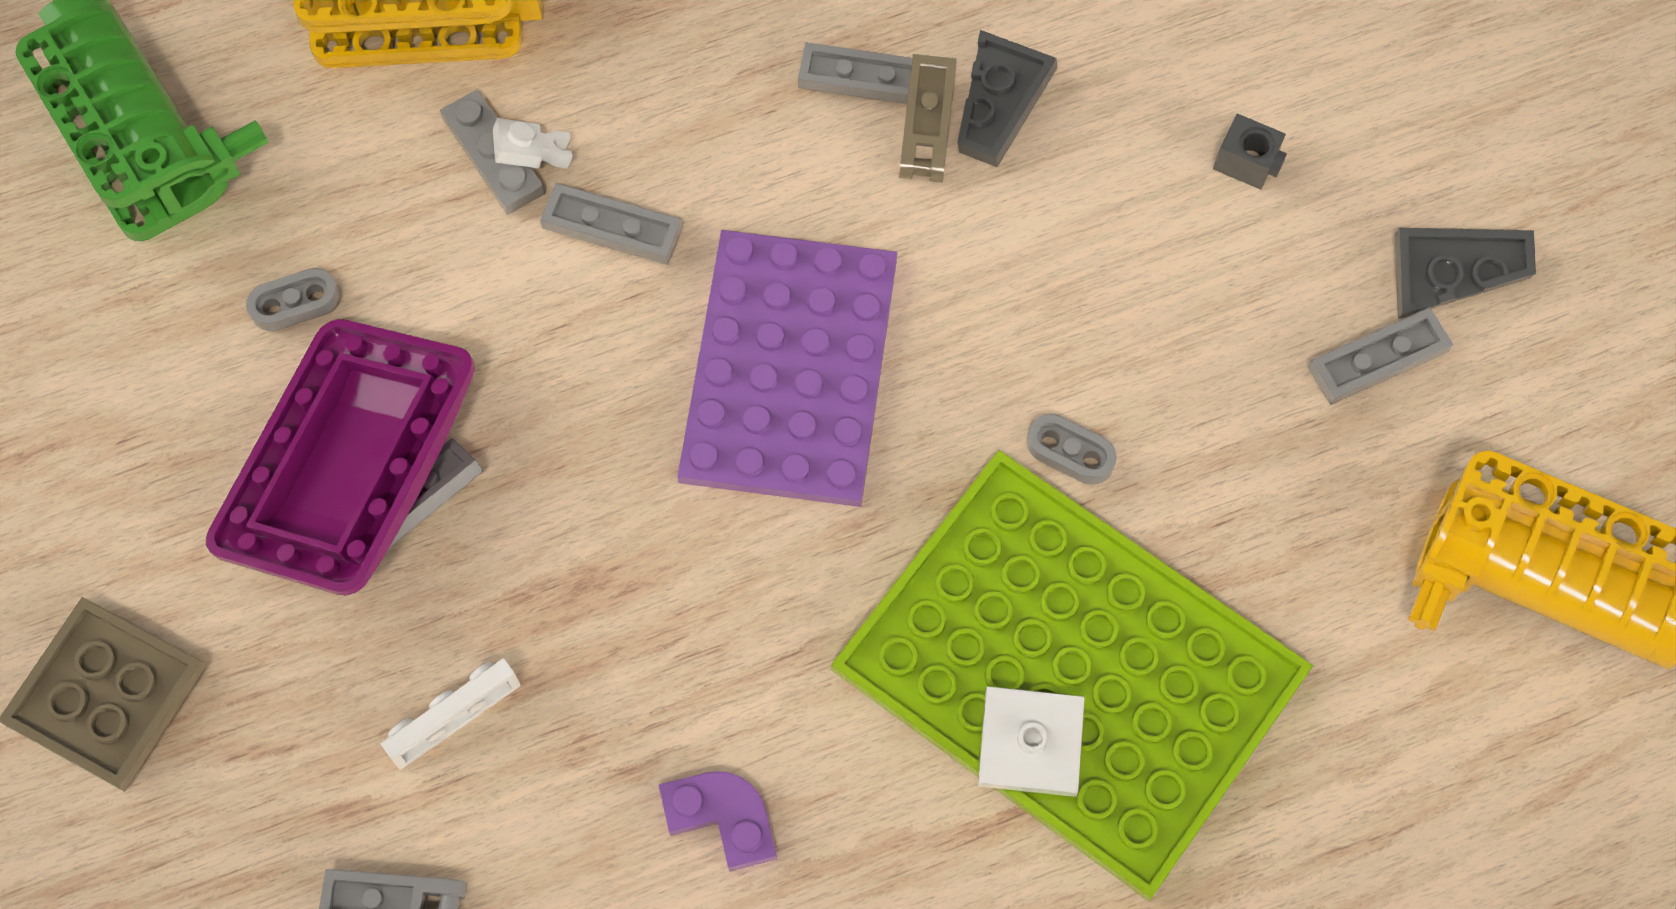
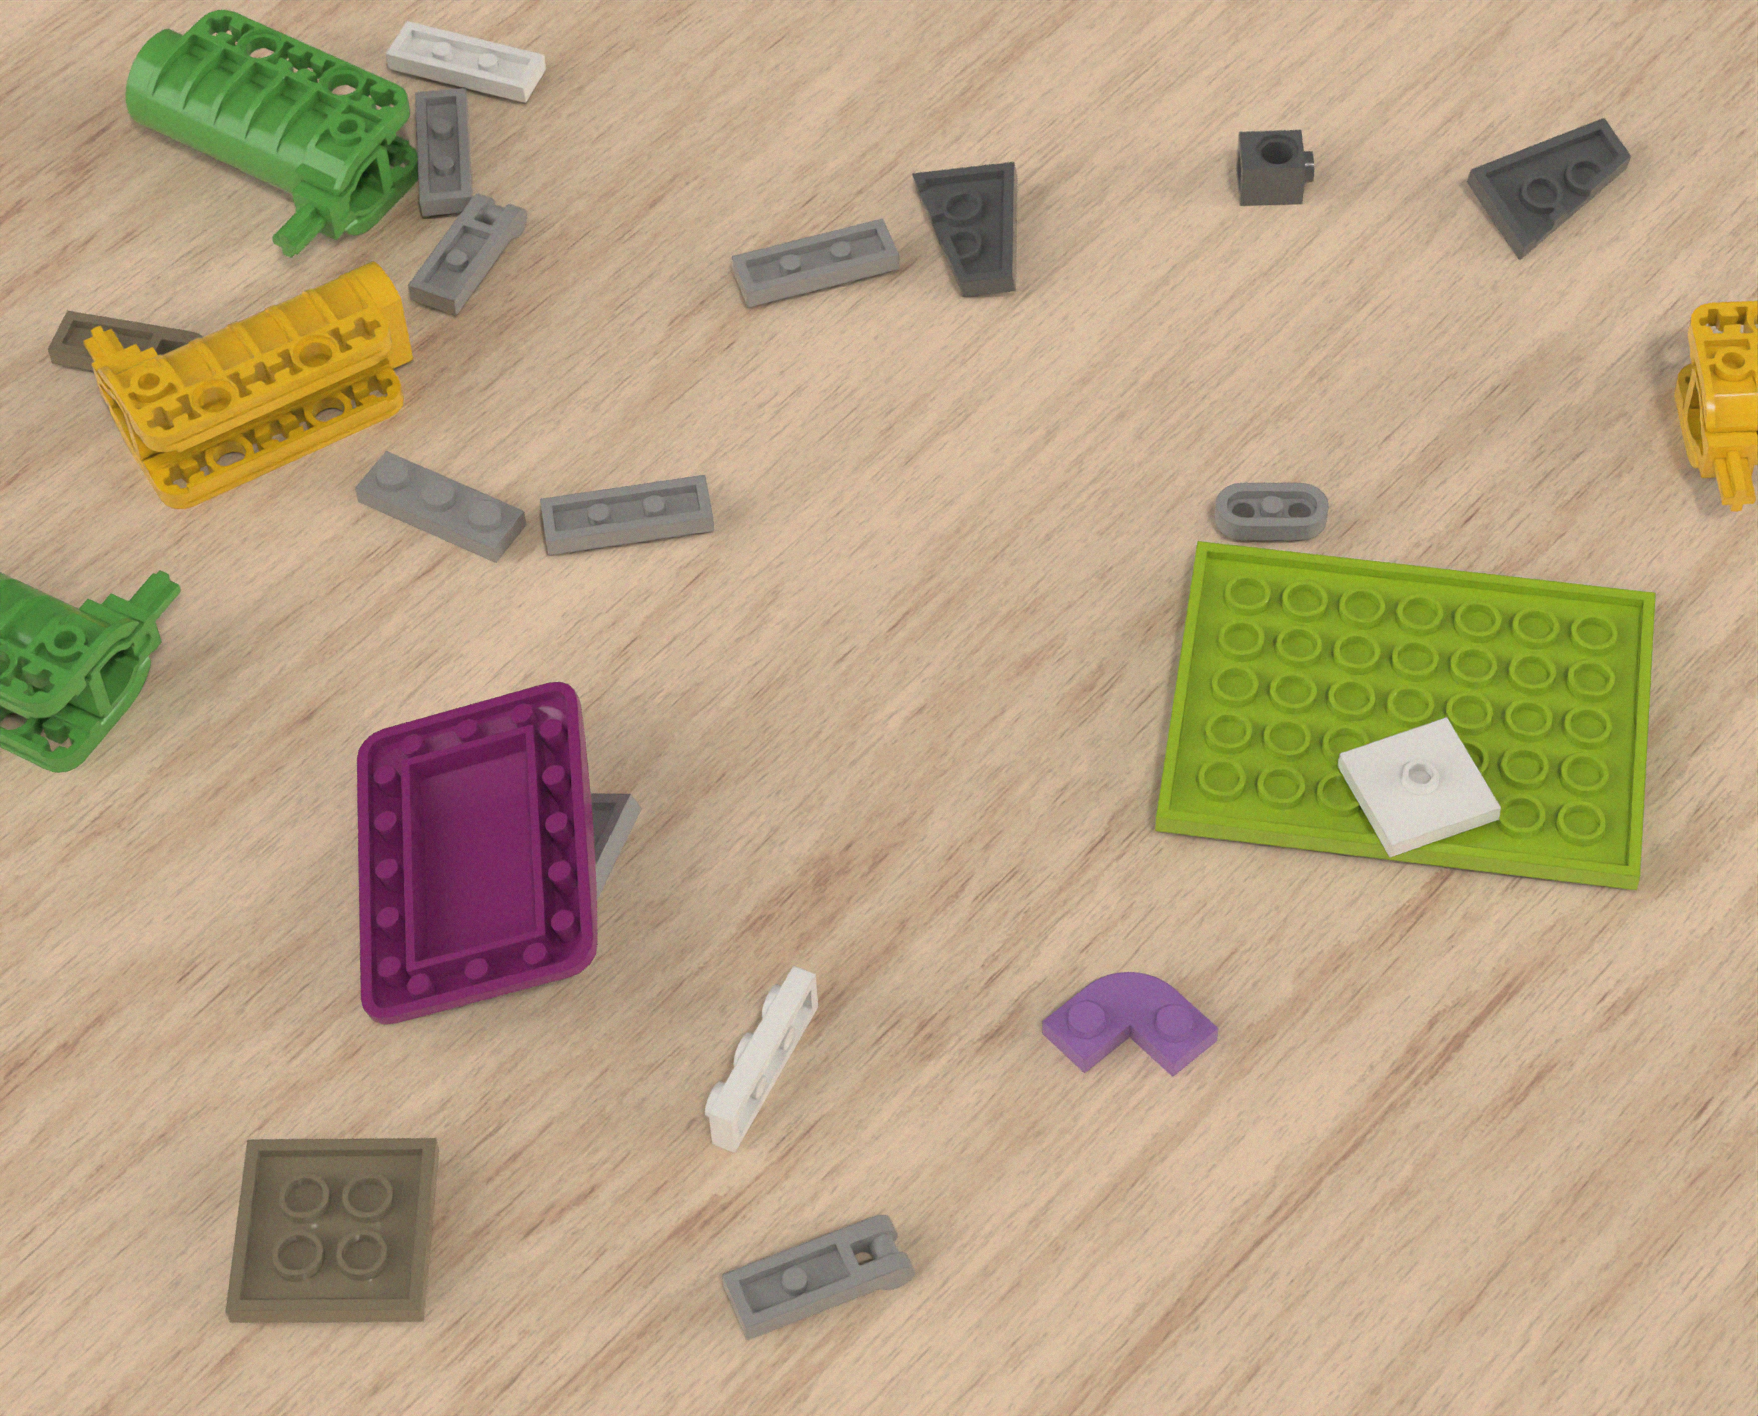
camera: 25 degrees left, 15 degrees down
(293, 298) = (301, 743): light grey plate -> none
(526, 146) = (479, 477): white plate -> none
(789, 368) = (916, 571): medium lavender plate -> none
(928, 116) = (914, 268): dark tan plate -> none
(1380, 356) = (1527, 294): light grey plate -> none

